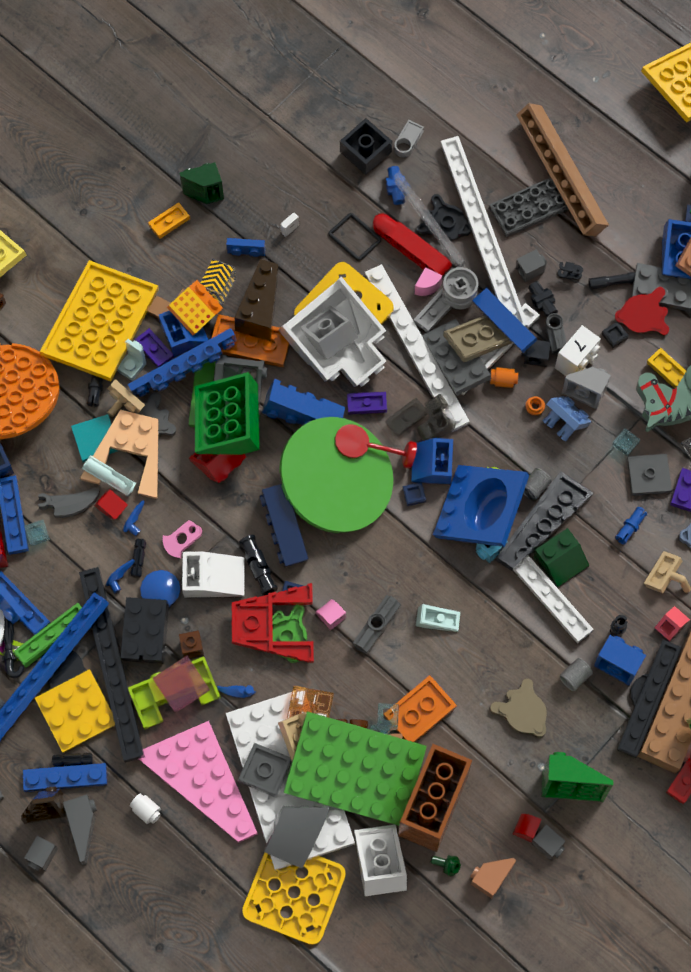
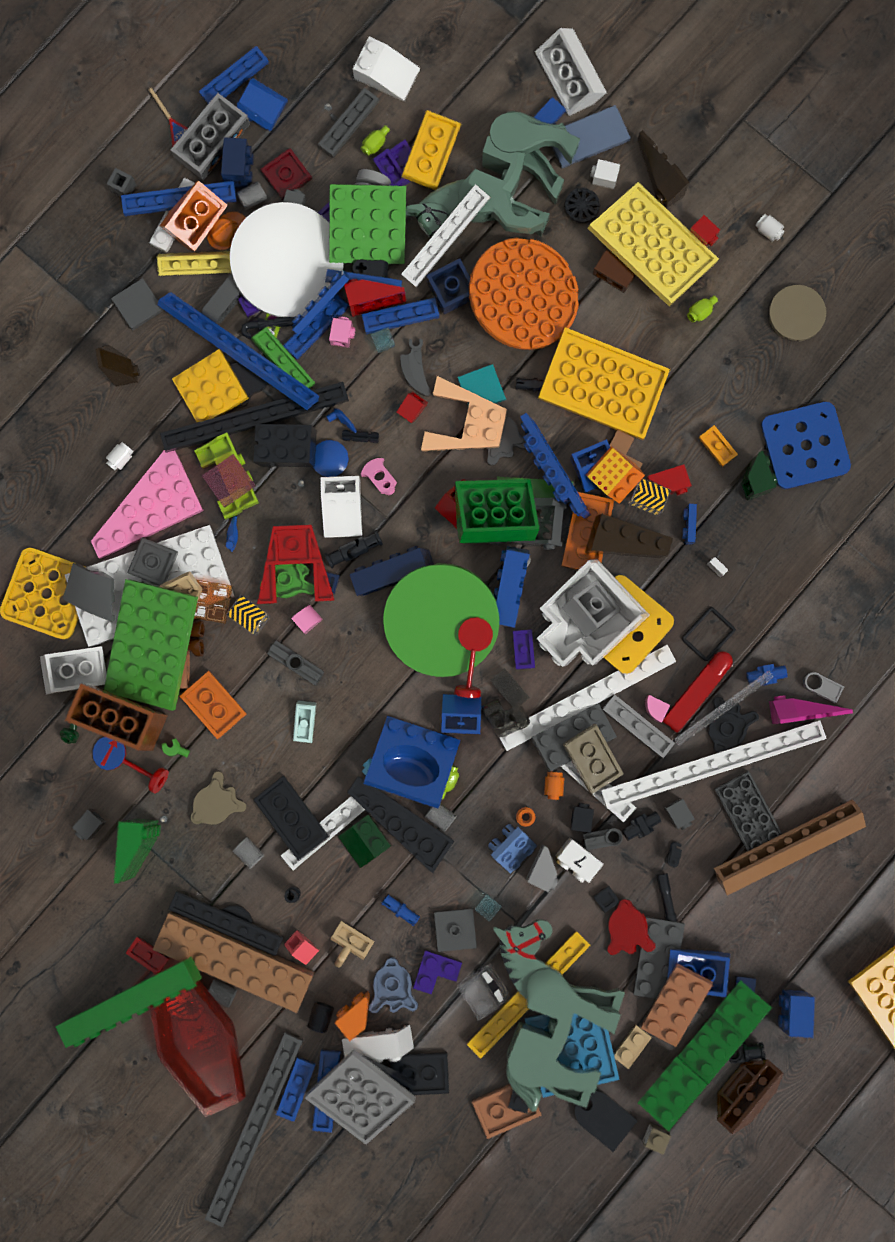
camera: 90 degrees right, 15 degrees up
(25, 573) = (341, 332): none -> bright pink brick
(30, 231) = (701, 309): none -> lime plant
(40, 147) = (797, 313): none -> dark tan tile
(40, 854) = (78, 365): dark grey brick -> none
(65, 777) = (150, 383): blue plate -> none
(72, 759) = (166, 388): black axle -> none
(81, 821) = (107, 399): dark grey slope -> none
(108, 475) = (439, 401): light aqua piece -> none
(123, 397) = (520, 408): tan plate -> none
(129, 525) = (400, 429): blue bar -> none
(134, 361) = (560, 418): light aqua bracket -> none
(154, 348) = (576, 439): dark purple plate -> none
(155, 136) = (796, 462): none -> blue piece
(191, 644) = (272, 490): reddish brown brick -> none
(200, 258) = (674, 479): none -> red slope
(325, 670) = (248, 615): none -> piece
(365, 146) = (809, 642): black brick -> none
(383, 725) = (194, 672): clear light blue bracket -> none
(414, 494) = (430, 697): dark blue tile -> none
(432, 163) = (793, 710): none -> dark pink wedge
(460, 288) = (638, 746): light grey wheel -> none
(467, 750) = (175, 750): none -> bright green piece
(470, 820) = (111, 754): none -> piece
(491, 875) = (58, 772): nougat slope -> none
(504, 320) = (610, 785): blue tile -> none
(527, 827) = (103, 805): red brick -> none
(539, 630) = (291, 818): none -> black tile
(620, 659) = (259, 894): blue brick -> none

